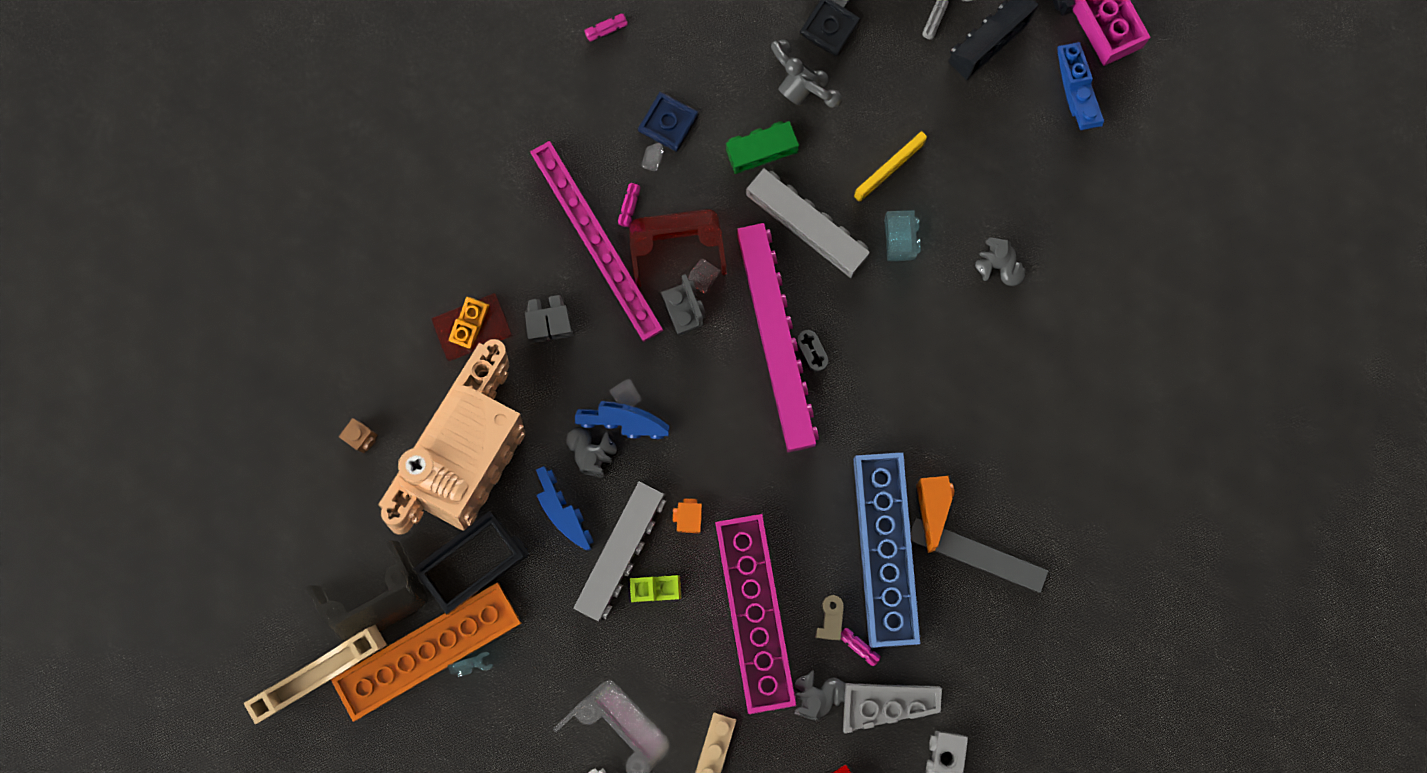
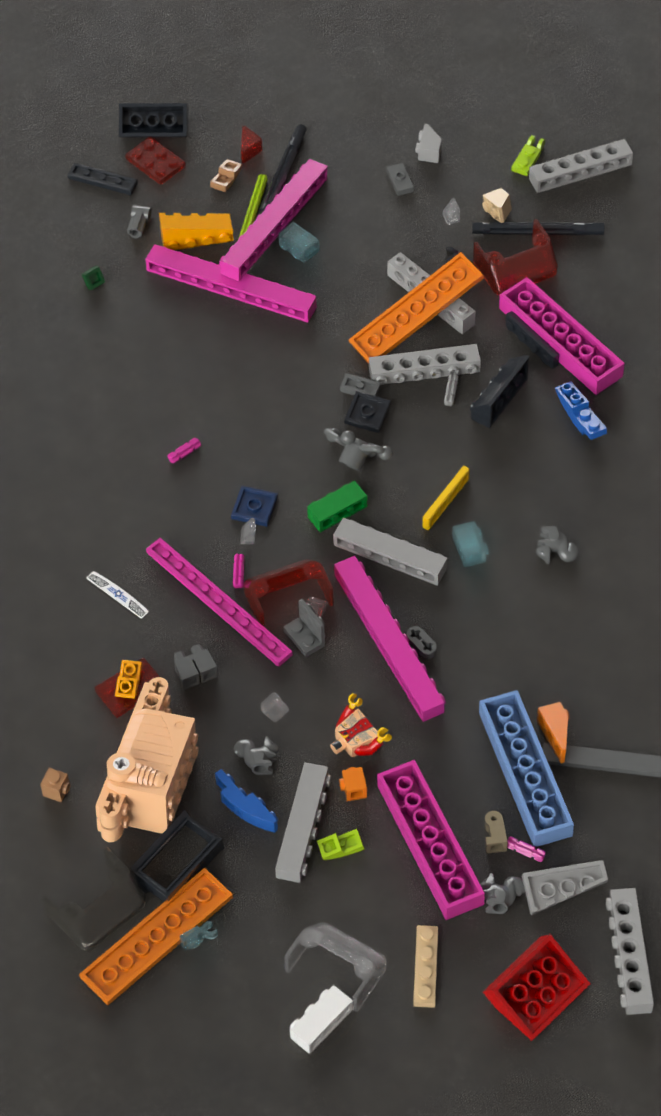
camera: 15 degrees left, 25 degrees down
(315, 674) = (43, 990): tan arch -> none
(487, 200) = (118, 594): none -> white sticker
(632, 419) = (287, 723): blue slope -> none
(708, 454) = (356, 733): none -> torso

